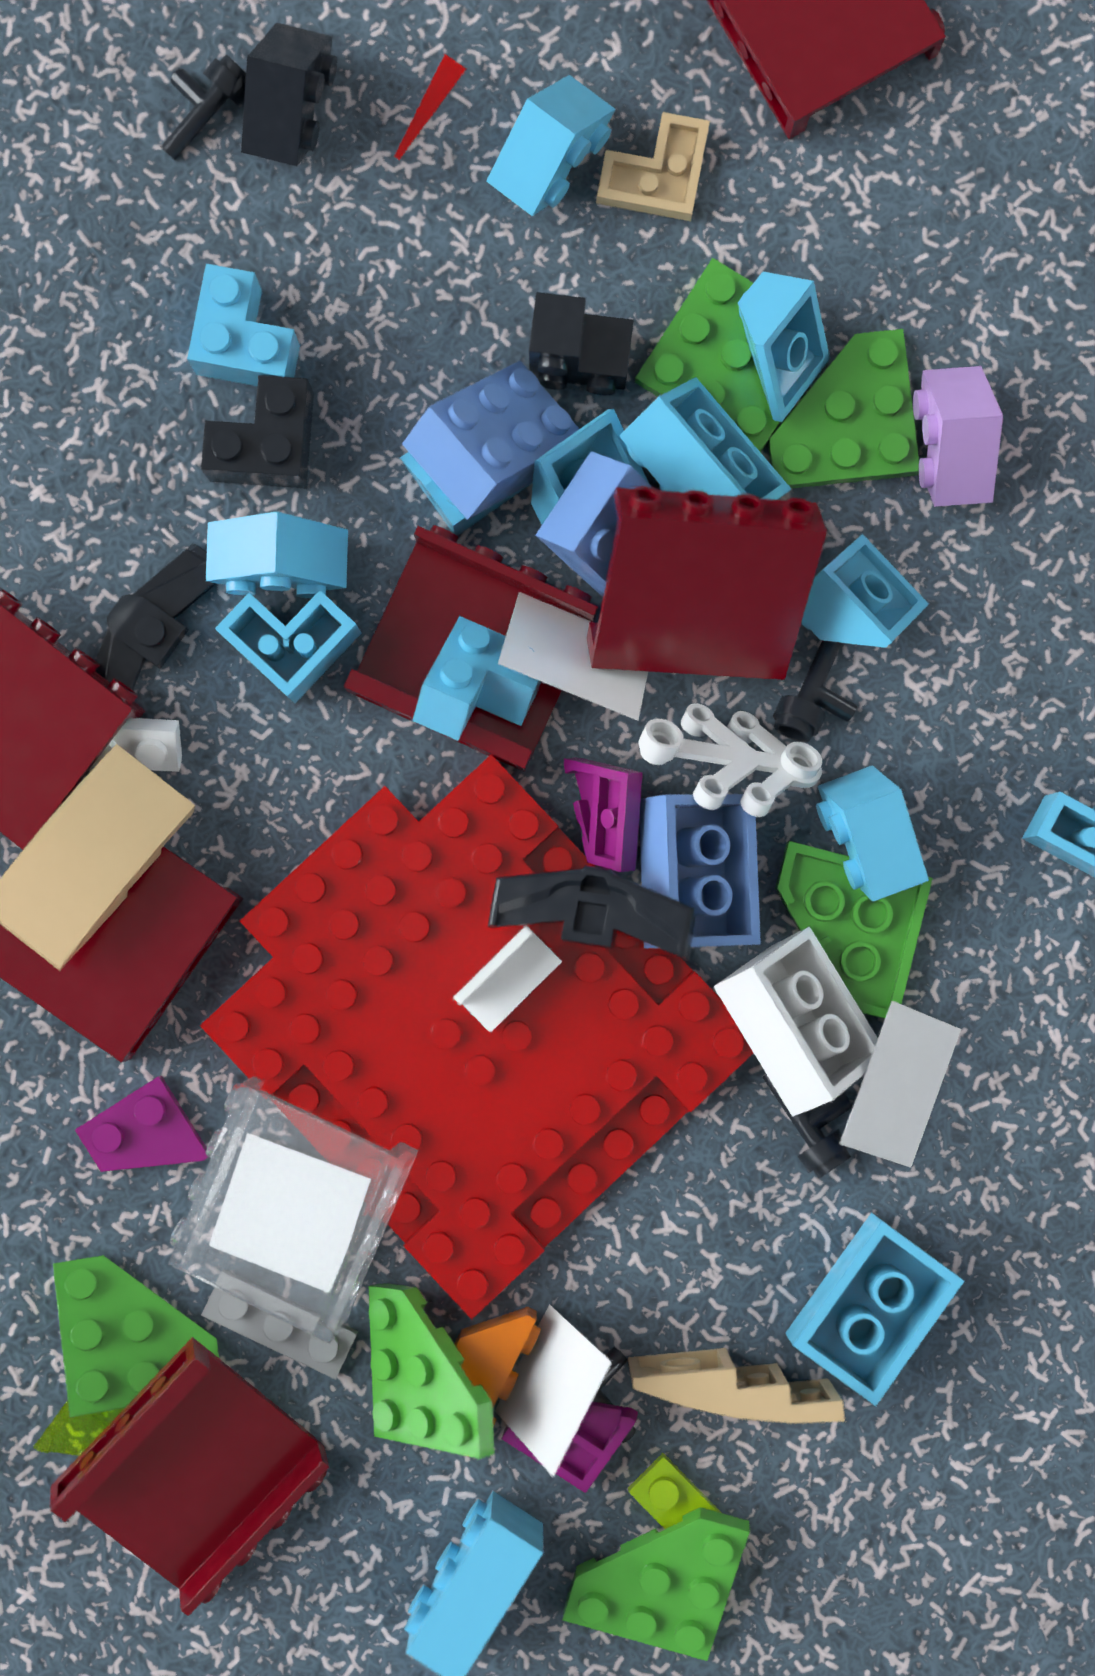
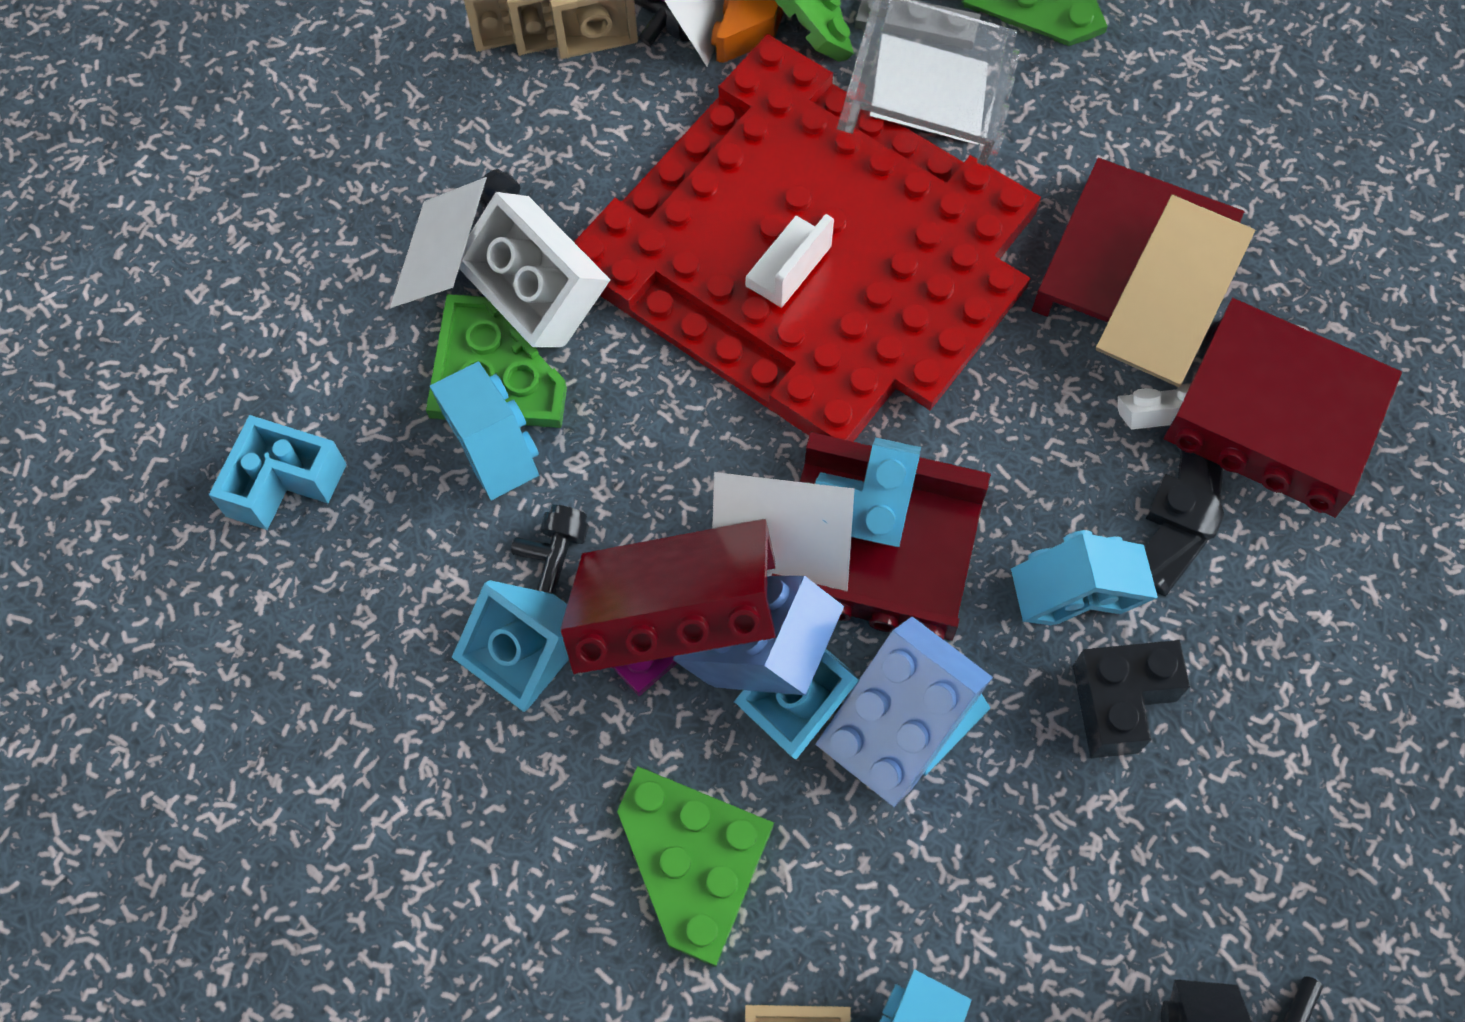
camera: 175 degrees right, 20 degrees down
(142, 1131) = (1063, 129): magenta wing -> none
(229, 340) = (1192, 784): medium azure brick -> none
(294, 653) = (1052, 498): medium azure brick -> none
(578, 346) = (839, 836): black brick -> none
(593, 908) = (725, 310): black plate -> none
(607, 812) = (727, 415): magenta wing -> none
(697, 446) = (690, 731): medium azure brick -> none
(705, 863) = (637, 373): medium blue brick -> none
(784, 337) = (632, 875): medium azure slope -> none
(791, 764) = (616, 470): white plant -> none
(852, 419) = (546, 821): bright green plate -> none
(873, 1309) = (444, 87): medium azure brick -> none
(961, 434) = (434, 813): lavender brick -> none

